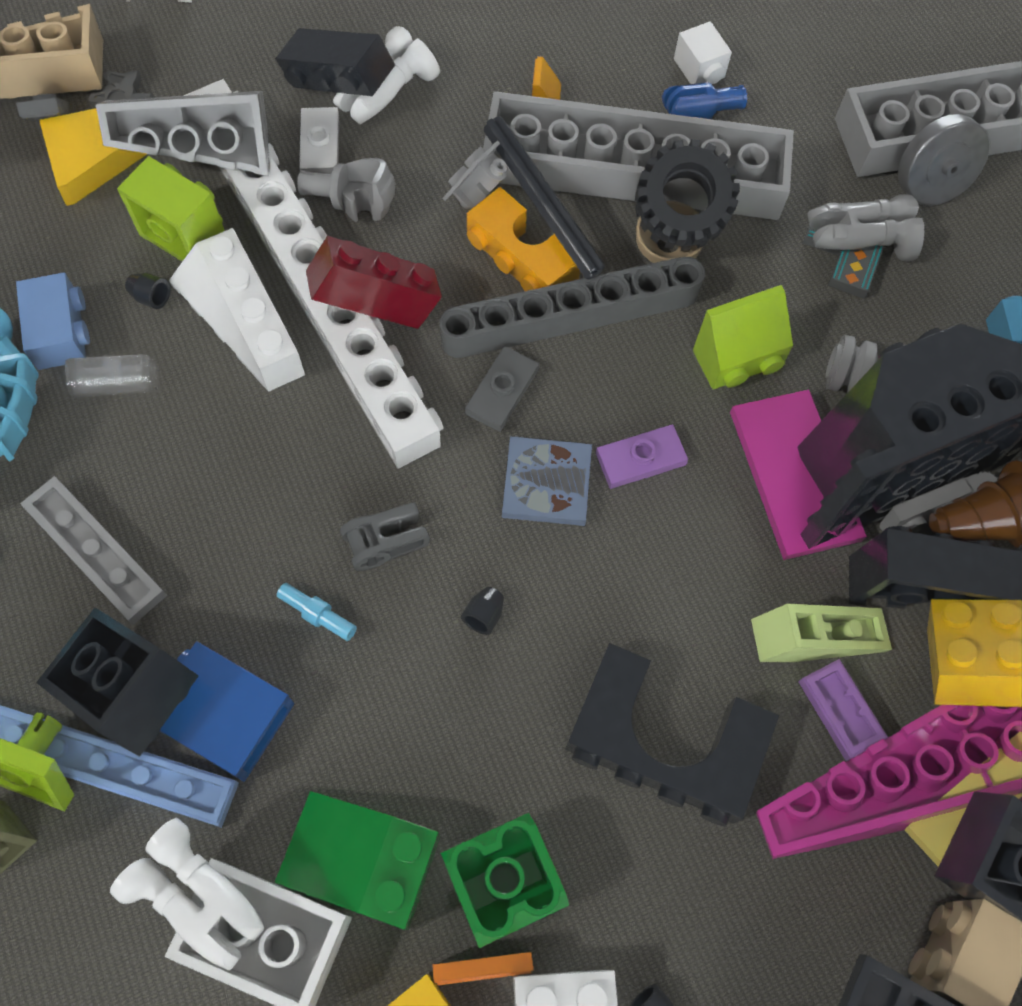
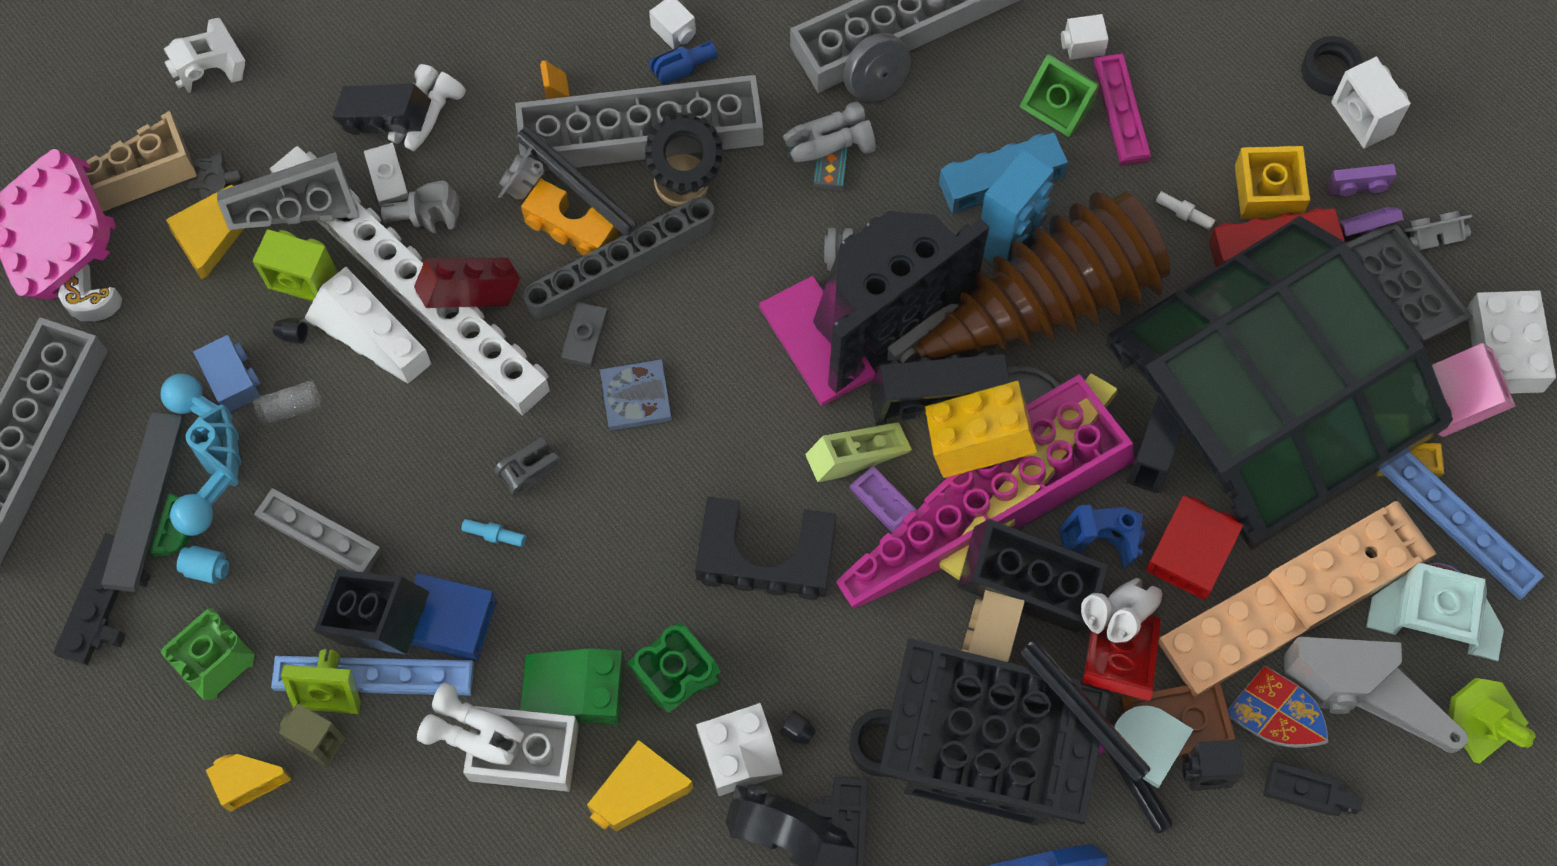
camera: 10 degrees left, 0 degrees up
(44, 107) = (165, 207): dark grey plate -> none
(483, 611) = (614, 500): black hose -> none
(483, 968) = (673, 730): orange tile -> none
(641, 456) = (701, 358): medium lavender plate -> none
(744, 338) = (755, 250): lime slope -> none

